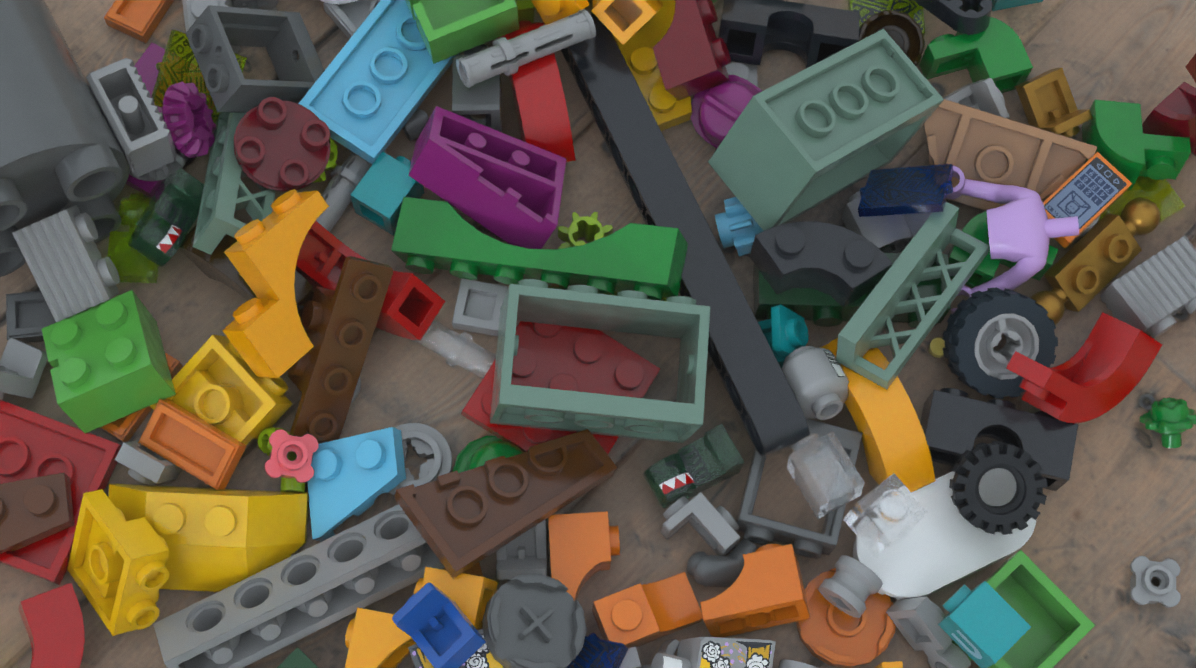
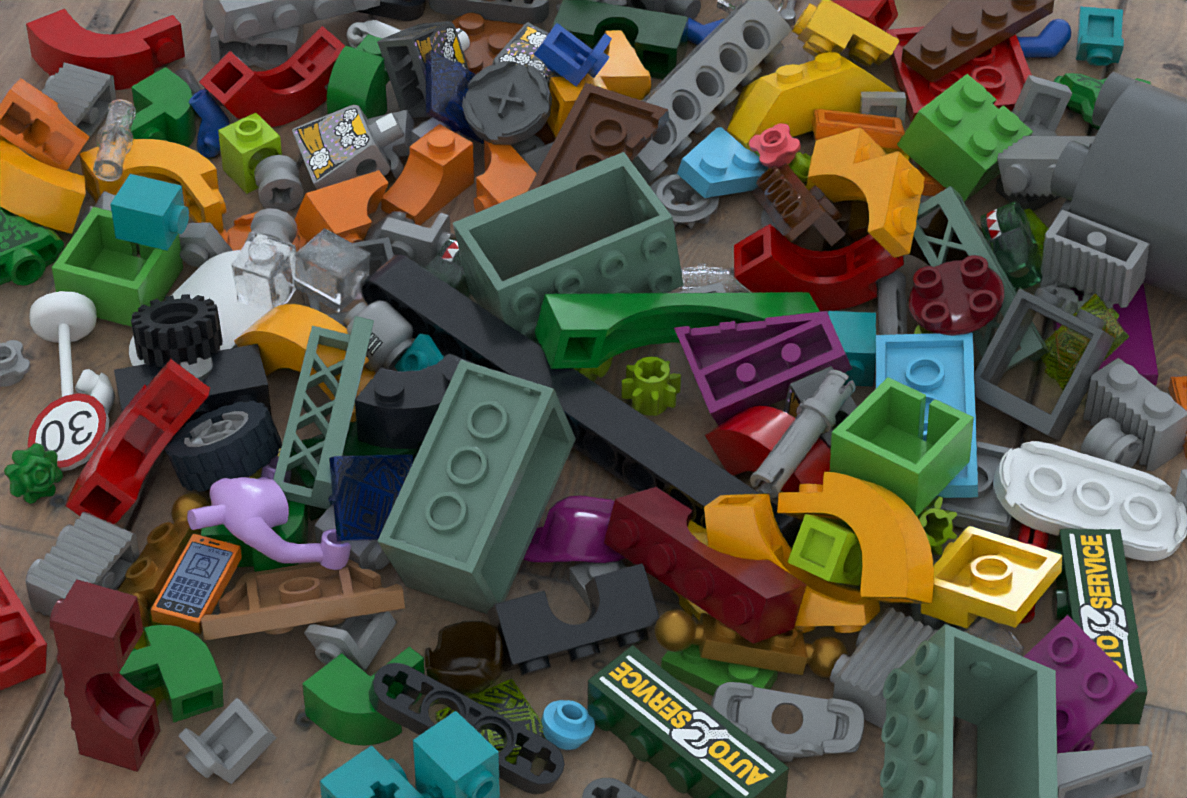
camera: 155 degrees right, 25 degrees down
(188, 119) = (1057, 275): magenta gear -> none
(1051, 104) = (261, 684): pearl gold bracket -> none
(1077, 489) = (96, 386): none -> white arm
(1103, 69) = (228, 743): none -> light grey bracket
(1126, 468) = (78, 421): none -> white piece

